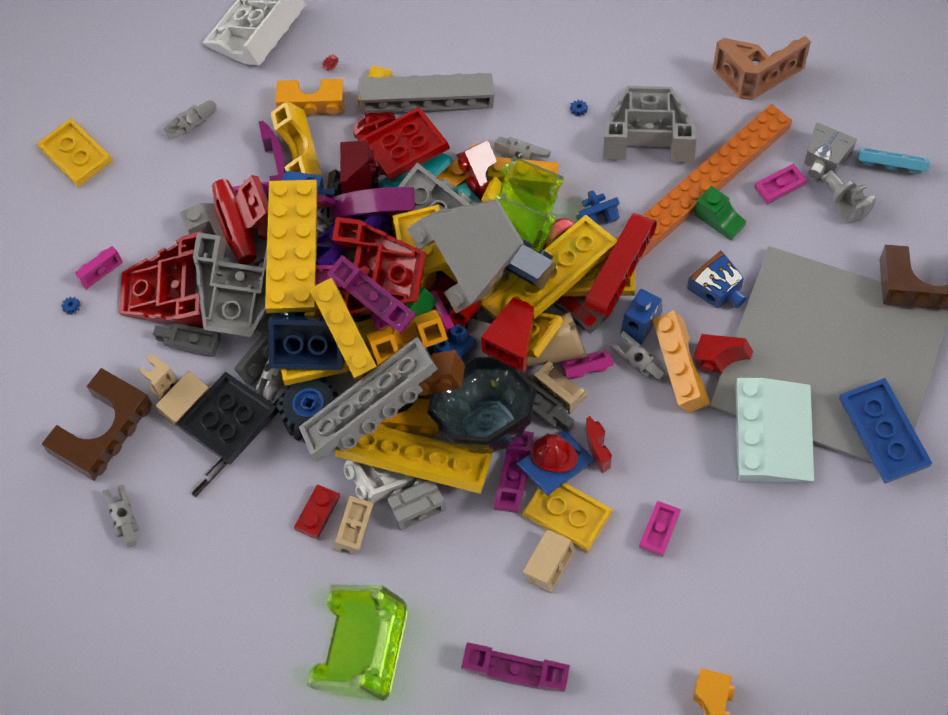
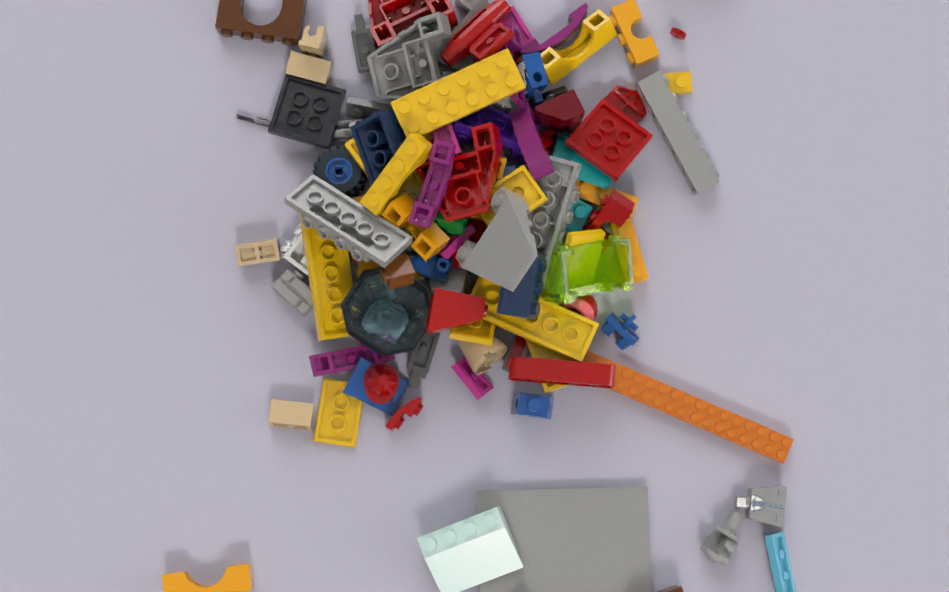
camera: 60 degrees right, 20 degrees up
(125, 525) = (190, 79): light grey hinge -> none
(317, 511) = (261, 218): red plate -> none
(362, 642) = (167, 301): clear neon green windscreen -> none
(515, 669) = (197, 424): magenta slope -> none
(520, 149) = (654, 240): light grey hinge -> none
(560, 387) = (444, 358): tan hinge -> none
(578, 111) = (724, 266): blue piece -> none
(649, 119) = (736, 338): light grey wedge -> none
(649, 363) = (491, 427): light grey hinge -> none
(659, 528) = (353, 490): dark pink plate -> none
(685, 380) = (519, 440): light orange arch -> none
(718, 213) = (661, 434): green arch -> none
(718, 282) = (593, 457): torso -> none
(718, 352) = (522, 480): red arch -> none
(736, 68) = (822, 396): nougat bracket -> none
(780, 183) = (714, 475): dark pink plate -> none

